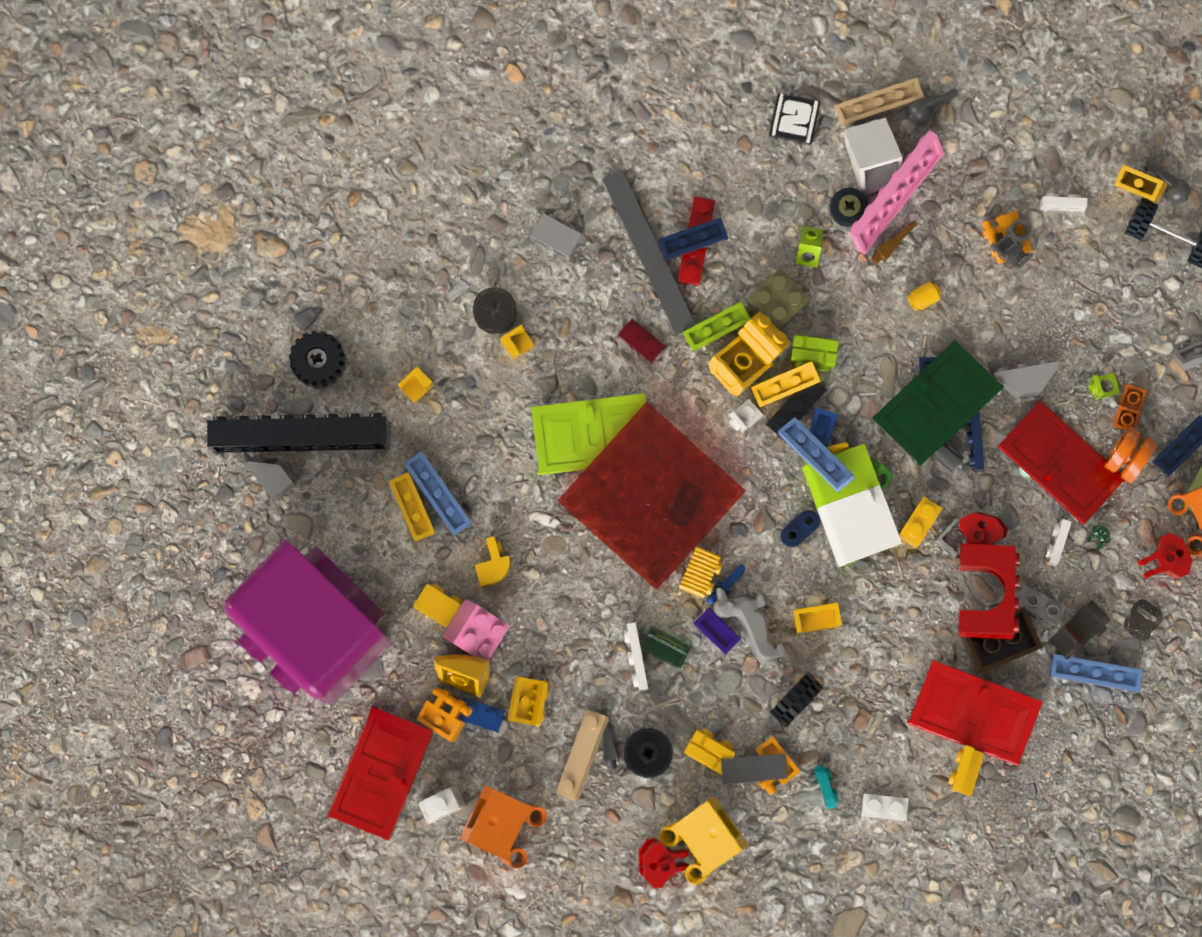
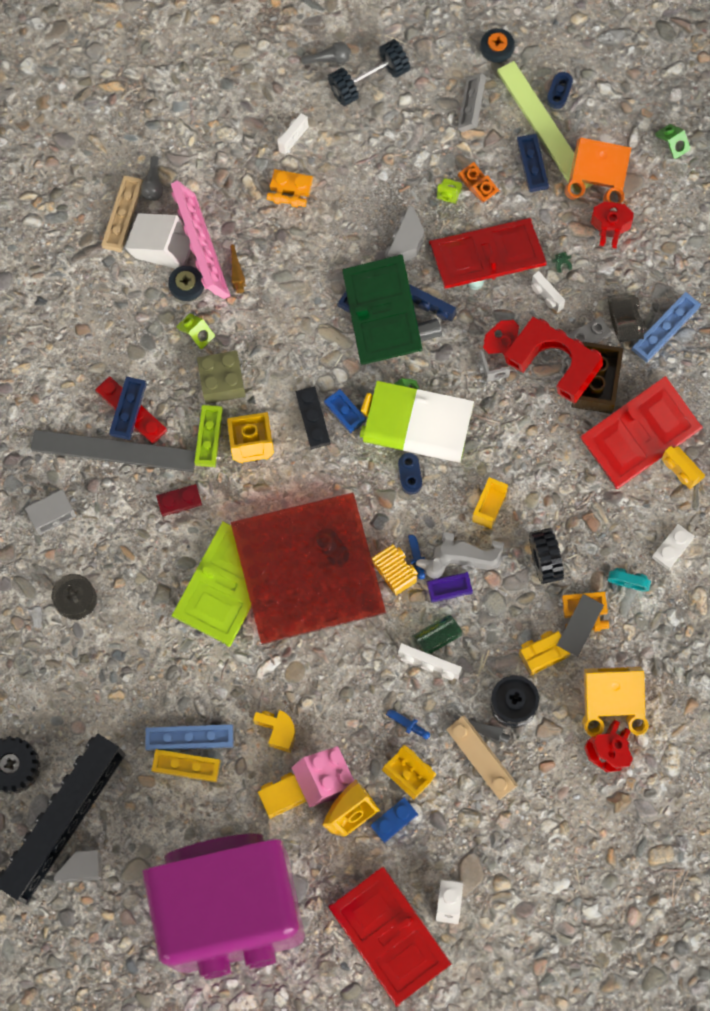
camera: 55 degrees left, 10 degrees down
(415, 385) = (88, 698): yellow panel -> none
(440, 720) = (379, 854): light orange plate -> none
(497, 823) = (496, 861): orange piece -> none
(516, 342) = (111, 596): yellow panel -> none
(571, 673) = (410, 725): none -> blue piece
(744, 416) = (293, 459): white bracket -> none
(764, 337) = (242, 403): yellow brick -> none
(786, 383) = (289, 411): yellow plate -> none
(794, 119) = (90, 281): tile -> none
(816, 454) = (361, 420): medium blue plate -> none
(820, 350) = (279, 376): lime brick -> none
(920, 522) = (465, 379): yellow brick -> none
(924, 296) = (293, 271): yellow brick -> none
(1013, 248) = (302, 186): dark grey piece -> none
(1129, 453) = (515, 198): orange wheel -> none
(1140, 184) = (316, 71): yellow brick -> none
(1140, 625) = (649, 274): clear smoke piece -> none

